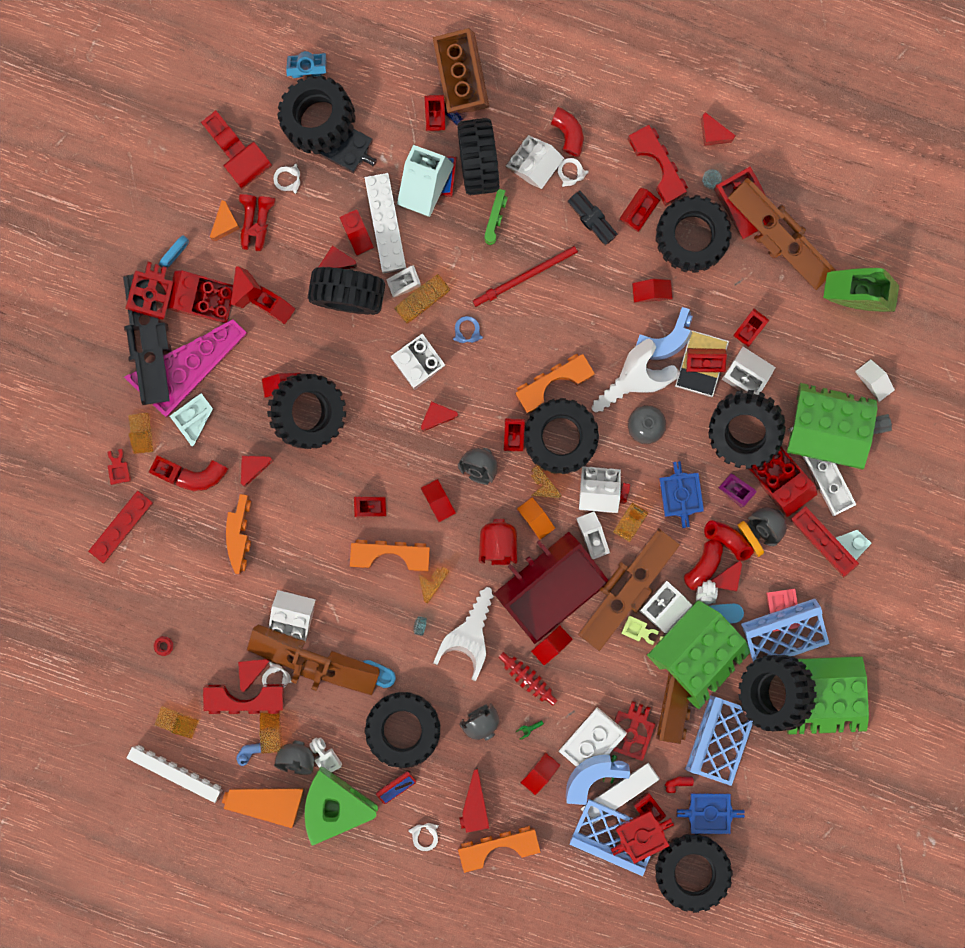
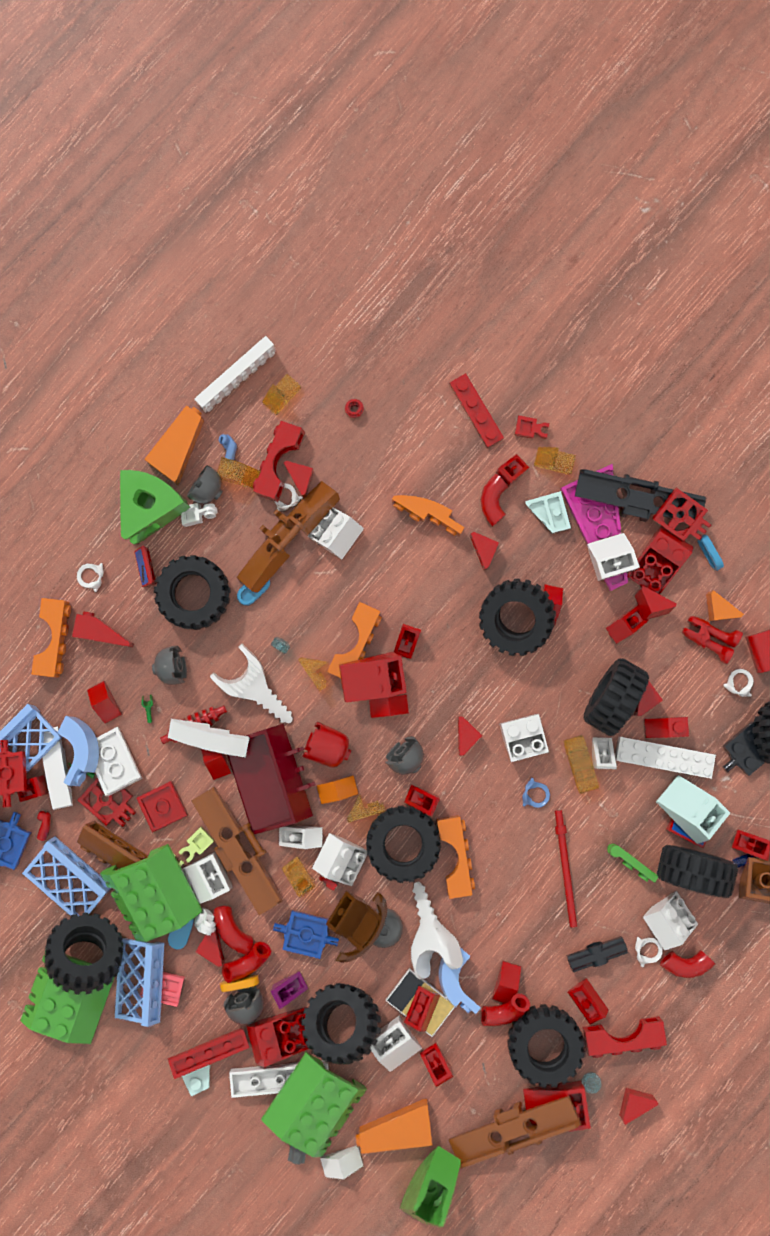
camera: 110 degrees right, 0 degrees up
(214, 343) = (612, 556): none -> white slope
(416, 524) = (373, 677): none -> red slope
(534, 658) = (208, 738): none -> white slope
(617, 678) = (162, 806): none -> red tile
(650, 449) = (358, 923): none -> reddish brown piece
(679, 281) = (505, 1013): none -> red cylinder
(824, 339) = (398, 1130): none -> orange slope

